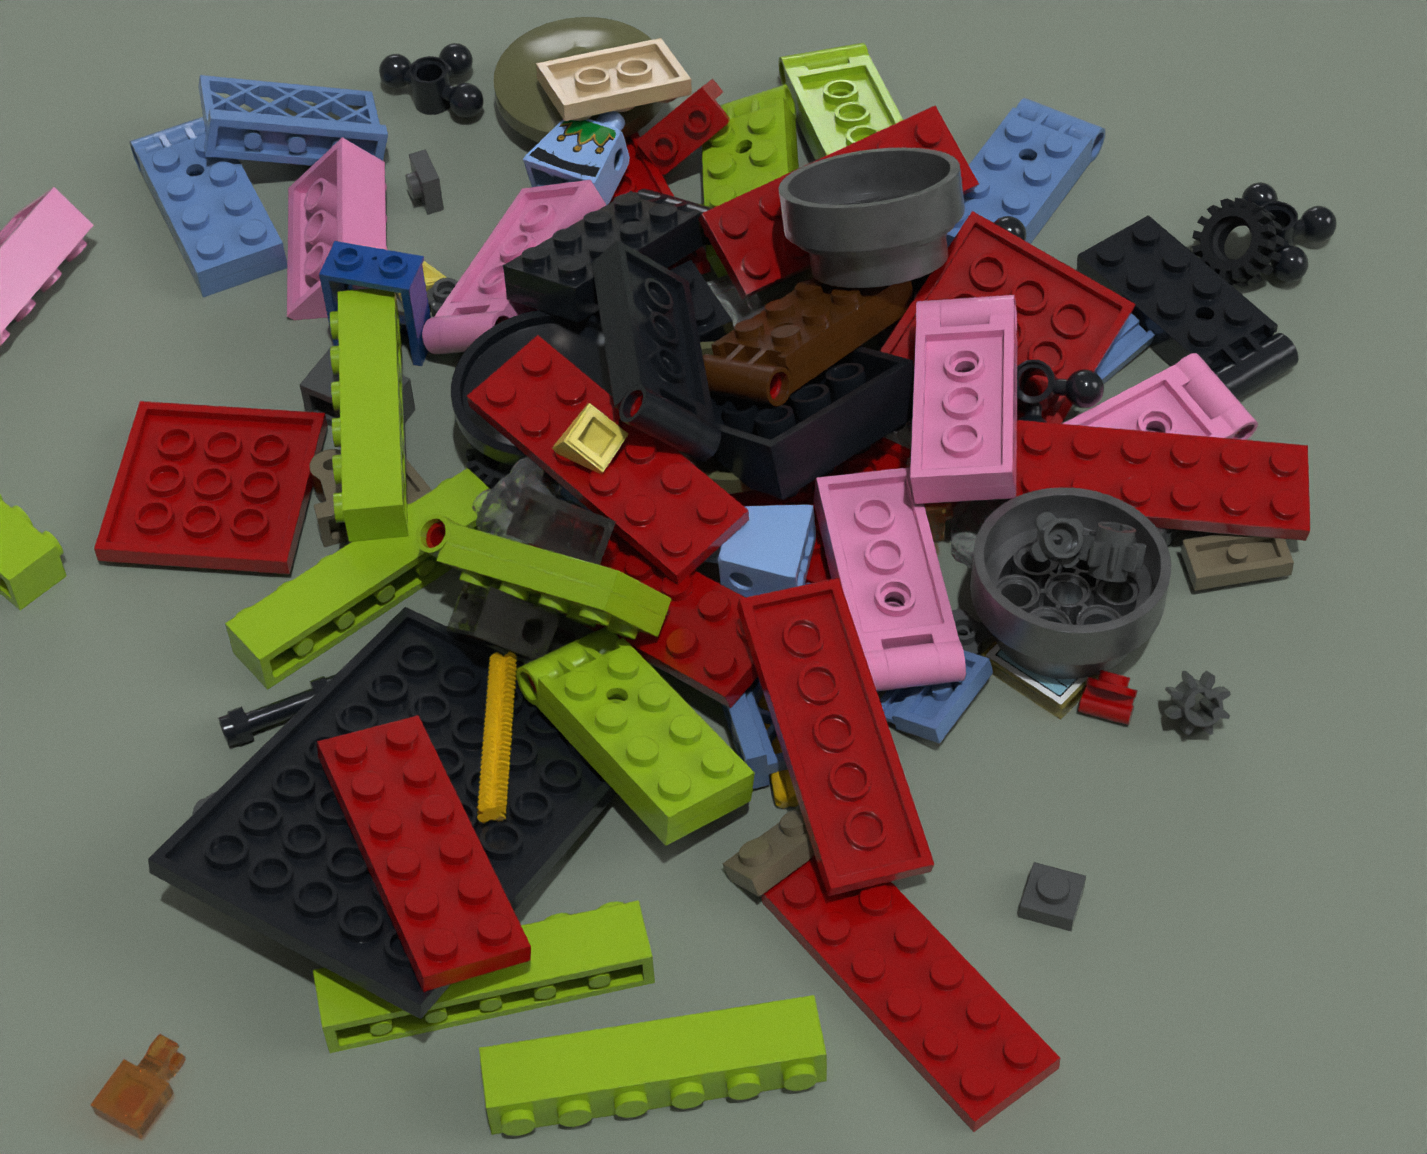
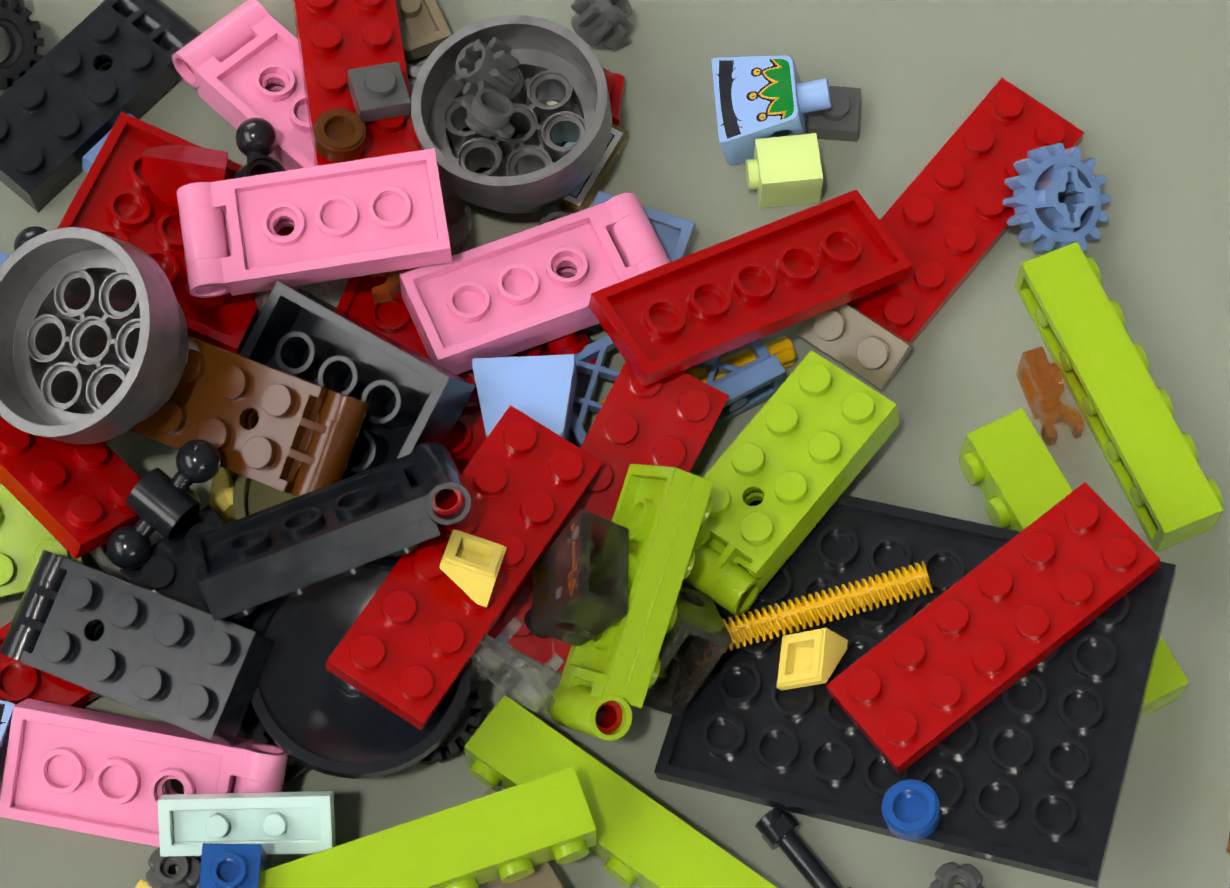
camera: 105 degrees left, 15 degrees up
(277, 749) = (911, 810): none -> blue tile
(443, 307) = (274, 819): none -> light aqua plate
(452, 718) = (809, 658): none -> light yellow slope
(671, 997) = (1042, 388): none -> clear orange plate
(729, 278) = (163, 504): none -> black piece
(897, 1080) = (1056, 198): none -> medium blue gear
(984, 829) = (785, 170): none -> yellowish green brick
(1056, 334) = (173, 166): none -> red brick
(1062, 432) = (339, 135): none -> reddish brown tile
(1062, 815) = (762, 100): none -> light blue torso
(1110, 471) = (379, 92): none -> dark grey plate

